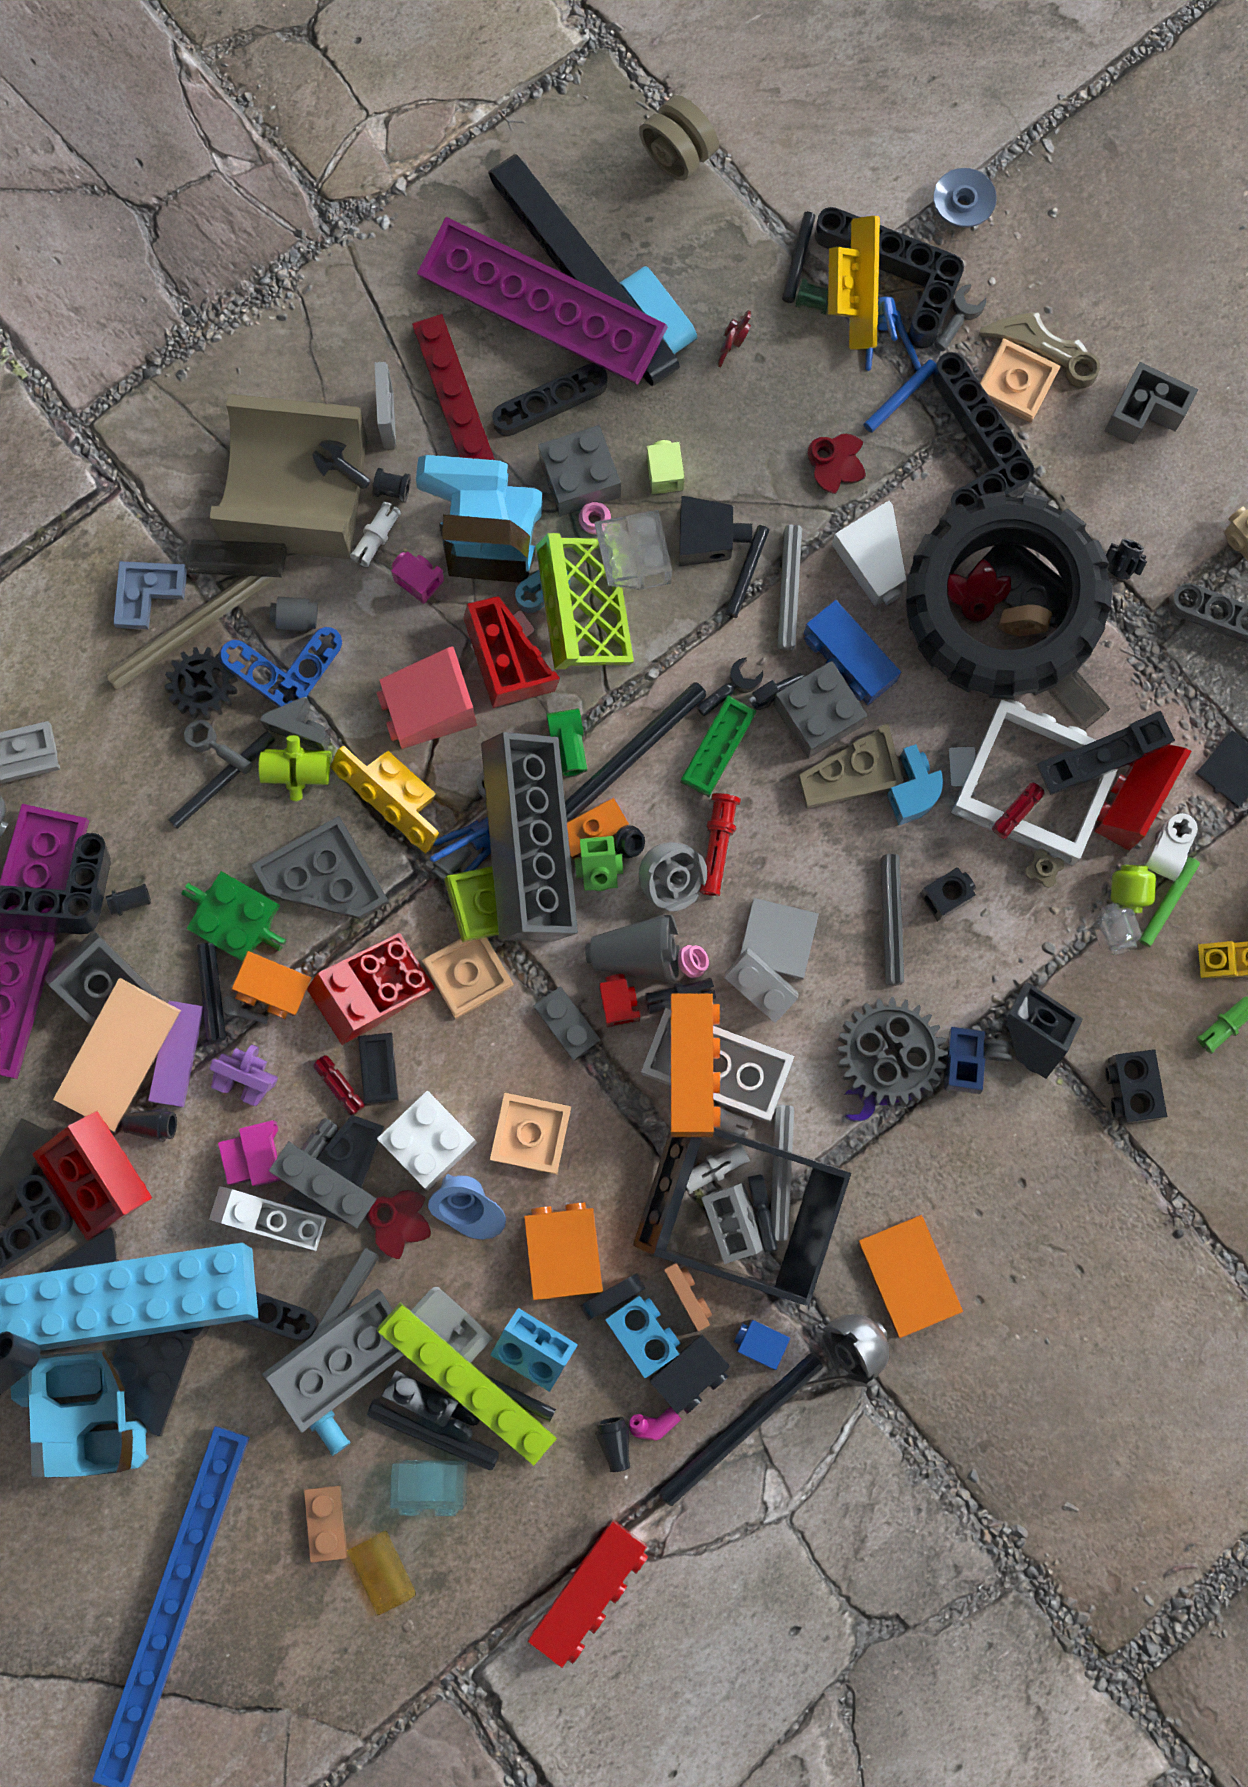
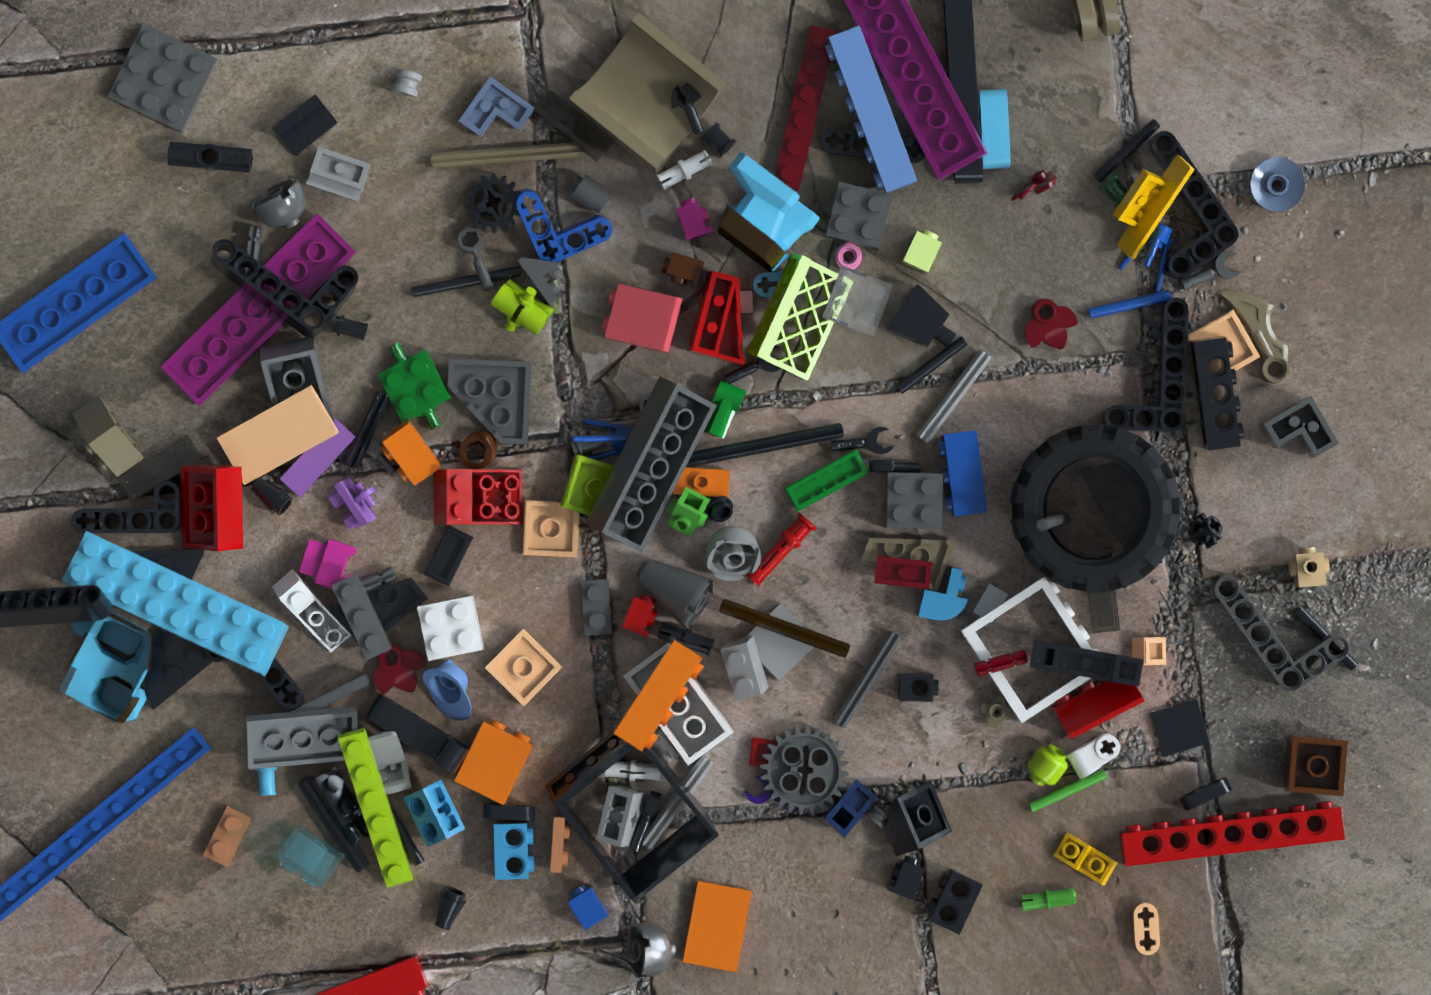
camera: 35 degrees right, 10 degrees up
(36, 620) = (406, 83): none -> light grey wheel
(338, 1085) = (414, 550): dark red axle -> none
(354, 932) = (490, 452): none -> reddish brown piece
(382, 1572) = (244, 891): clear yellow slope -> none
(385, 405) = (749, 81): light grey tile -> none
(391, 791) = (579, 367): yellow bracket -> none
(437, 628) = (683, 269): none -> reddish brown brick
(462, 1274) = (418, 733): none -> black beam
(524, 359) = (871, 109): none -> medium blue brick
(569, 684) = (750, 368): none -> black piece
(653, 1428) = (481, 914): dark pink arm -> none
(690, 1375) = (526, 896): black brick -> none
(693, 961) = (710, 620): bright pink plate -> none
(740, 1429) = (538, 952): black axle -> none
(774, 918) = (784, 628): none -> dark brown axle
(828, 1062) = (759, 747): none -> red tile
(857, 784) = (903, 572): none -> dark red plate
(874, 554) = (1028, 412): white slope -> none
(975, 630) = (1053, 521): none -> dark grey bar
(978, 588) = (1084, 486): dark red plate -> none
(1025, 620) = (1100, 530): light nougat beam -> none
(1044, 439) = (1202, 352): none -> black brick
(1071, 1095) = (906, 877): none -> black brick
(1117, 929) = (1015, 786): clear head -> none
(1149, 705) = (1150, 649): none -> light nougat slope

